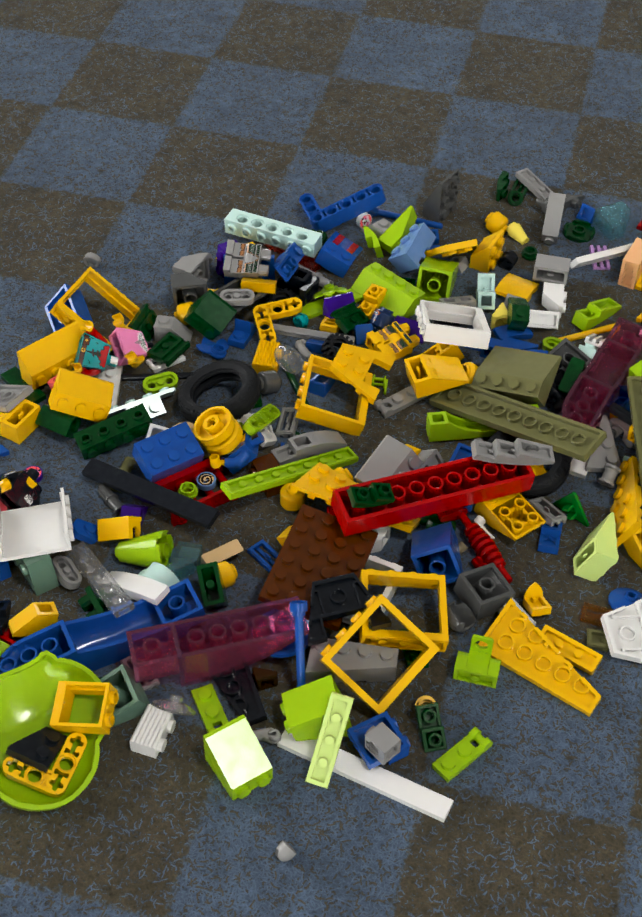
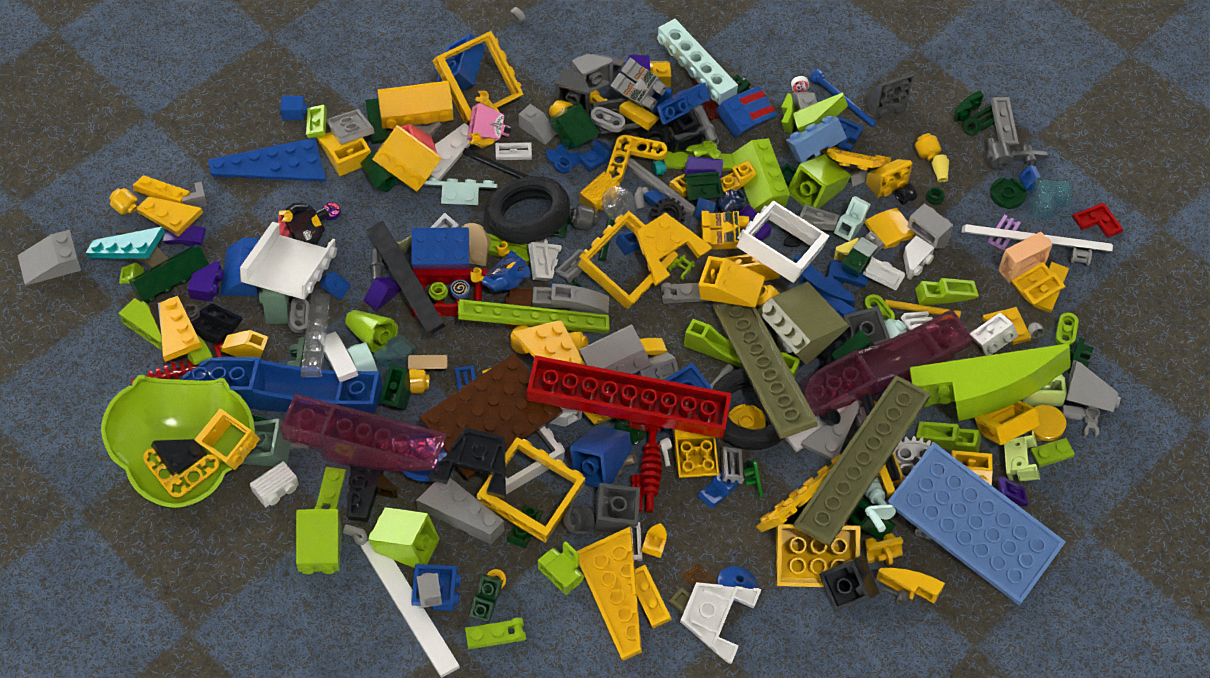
camera: 30 degrees right, 10 degrees up
(92, 352) = (444, 119): torso -> none
(113, 432) = (417, 203): dark green brick -> none
(118, 528) = (360, 296): yellow hinge -> none
(144, 321) = (514, 104): dark green plate -> none
(160, 381) = (492, 172): lime plate -> none
(168, 349) = (518, 143): dark green plate -> none
(174, 705) = (300, 474): clear dish -> none
(218, 430) = (493, 248): yellow wheel -> none
(261, 419) = (545, 253): lime beam -> none
(284, 851) = (307, 632): light grey hinge -> none
(299, 609) = (429, 446): blue piece -> none
(329, 739) = (392, 565): yellowish green tile -> none
(342, 210) = (764, 66): blue beam -> none
(372, 496) = (560, 377): dark green slope -> none
(406, 677) = (512, 503): yellow window -> none
(512, 453) = (717, 399): light grey slope -> none
(553, 218) = (981, 170): light grey slope -> none
(598, 551) = (736, 527): yellowish green slope -> none
(609, 475) = (815, 460): light grey bush -> none

